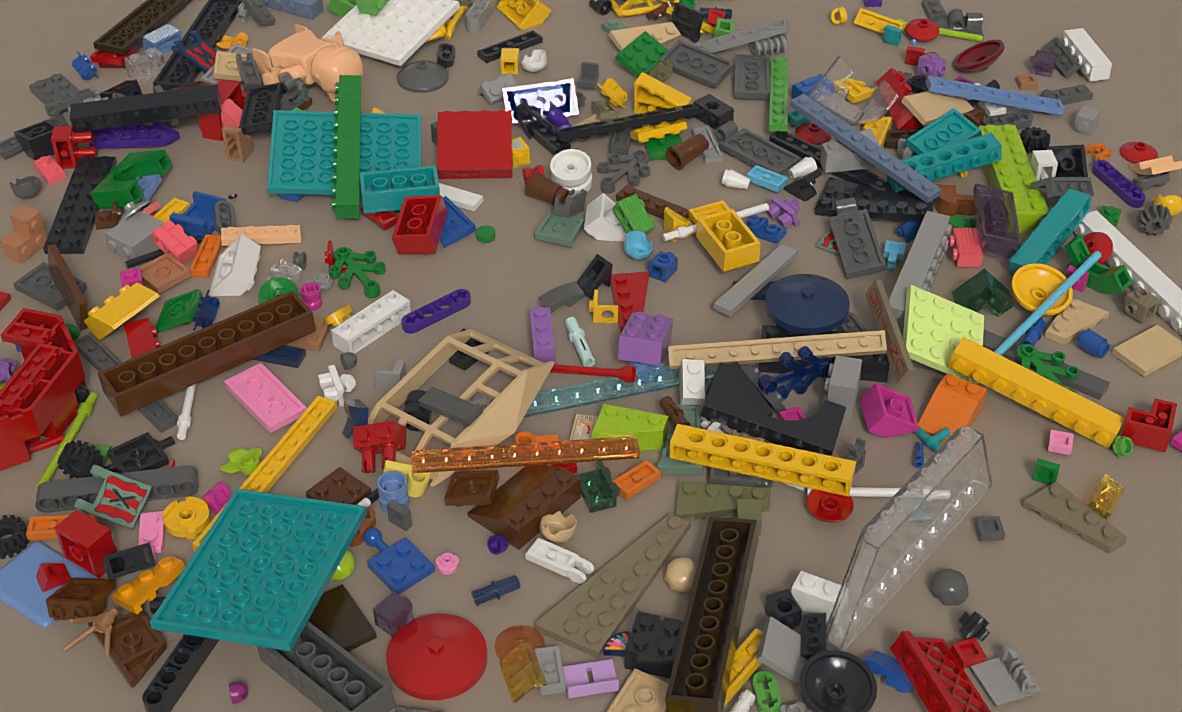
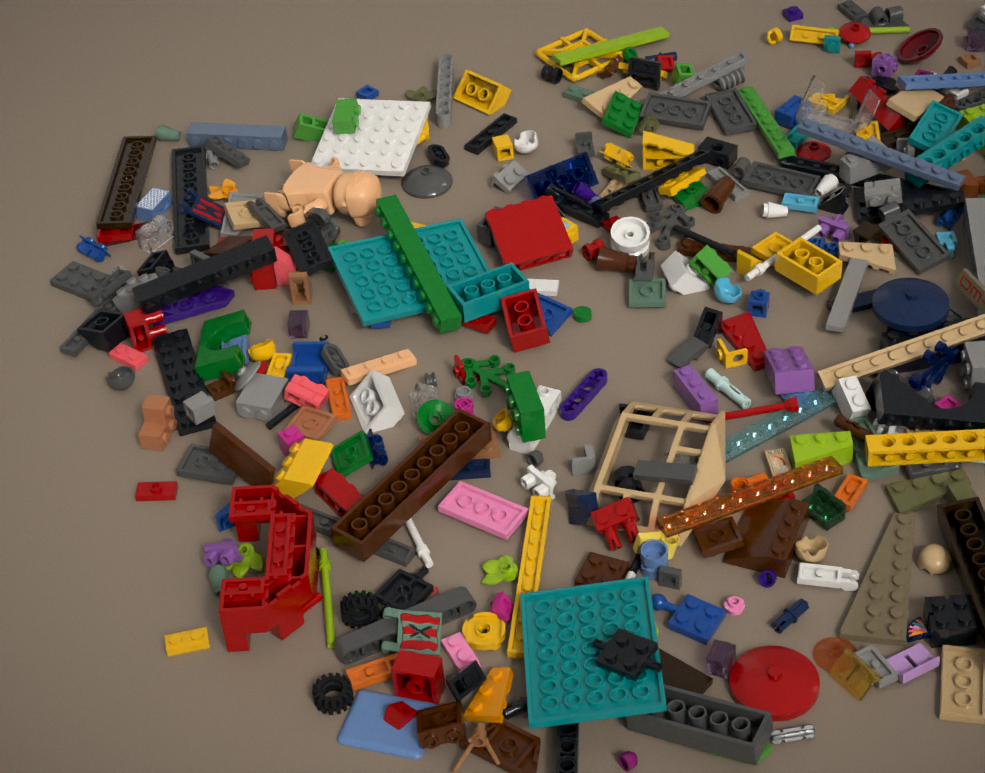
camera: 15 degrees left, 0 degrees up
(69, 229) = (199, 407): none -> light grey brick
(165, 194) = (262, 351): none -> yellow hair
(215, 177) = (298, 324): none -> clear purple brick
(285, 580) = (627, 654): none -> black plate
(352, 305) = (525, 407): none -> green brick
(643, 190) = (704, 240): none -> black bar
(810, 247) = (879, 255): none -> tan wing
(812, 223) = (866, 232): none -> dark brown panel
(849, 185) = (883, 192): none -> light grey brick

